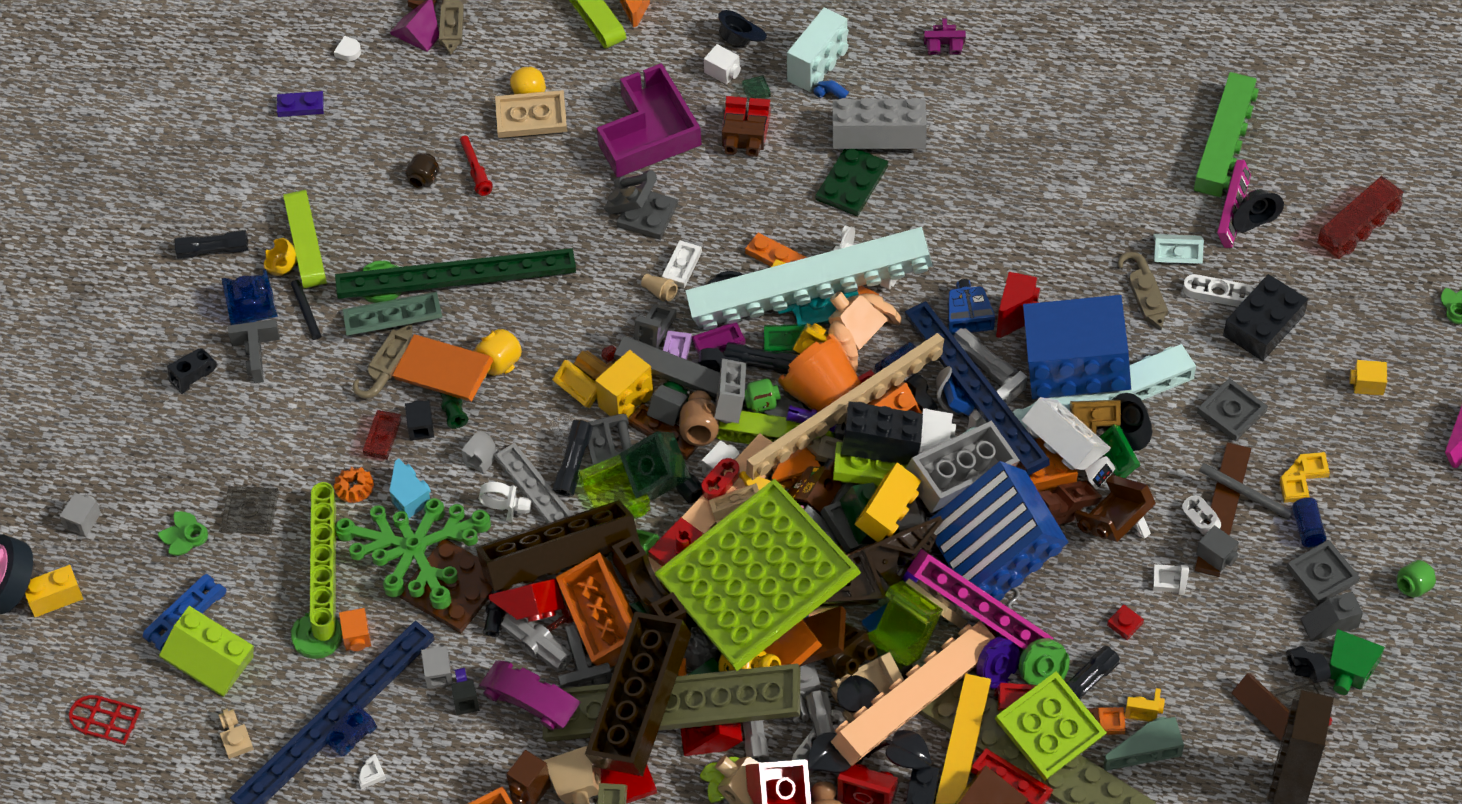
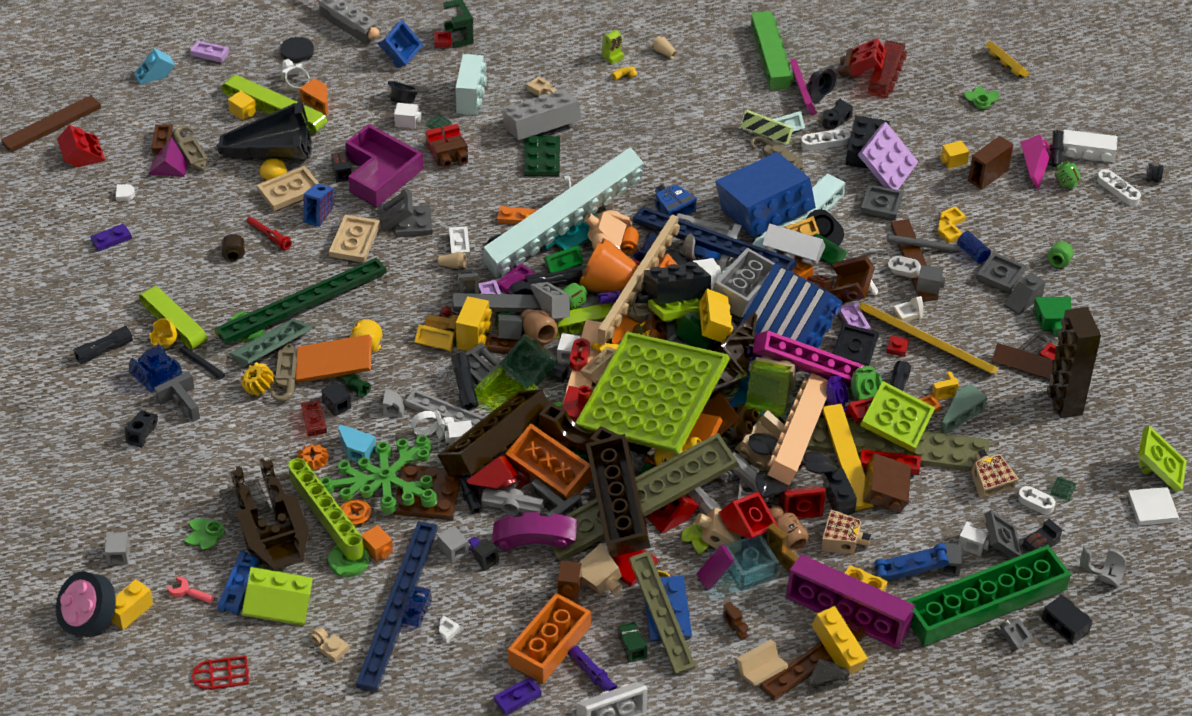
camera: 30 degrees left, 10 degrees down
(124, 596) = (184, 589): none -> coral piece
(243, 583) = (278, 543): none -> dark brown connector
(346, 359) = (257, 379): none -> yellow gear
(347, 574) = (357, 506): none -> orange gear
(525, 520) = (456, 430): none -> white brick
(547, 149) = (317, 204): none -> blue torso
(548, 38) = (271, 136): none -> black cone
(565, 211) = (354, 238): none -> tan plate
(606, 105) = (340, 164): none -> black leg
(810, 335) = (581, 254): yellow bracket -> none
(830, 87) = (491, 105): blue arm -> none
(882, 341) = (630, 241): none -> orange brick
(906, 81) = (540, 86): none -> tan plate
(942, 35) = (549, 51): magenta hips -> none
(1018, 290) = (704, 185): red slope -> none
(1022, 96) = (624, 71): none -> yellow arm
(1024, 59) = (612, 47): none -> lime leg
(1069, 601) = (856, 344): none -> black tile
(1091, 563) = (853, 316): none -> lavender plate
(1092, 79) = (662, 46): none -> tan cone
(1099, 471) = (823, 264): white slope -> none
(1148, 246) = (766, 127): none -> yellowish green tile
(1169, 629) = (929, 338): none -> yellow tile
(1253, 262) = (837, 115): none -> black leg
(1272, 352) = (888, 157): none -> lavender plate
(1308, 664) = (1029, 325): black piece -> none
(1332, 194) = (862, 58): none -> red hips
(1404, 409) = (990, 162): none -> reddish brown brick

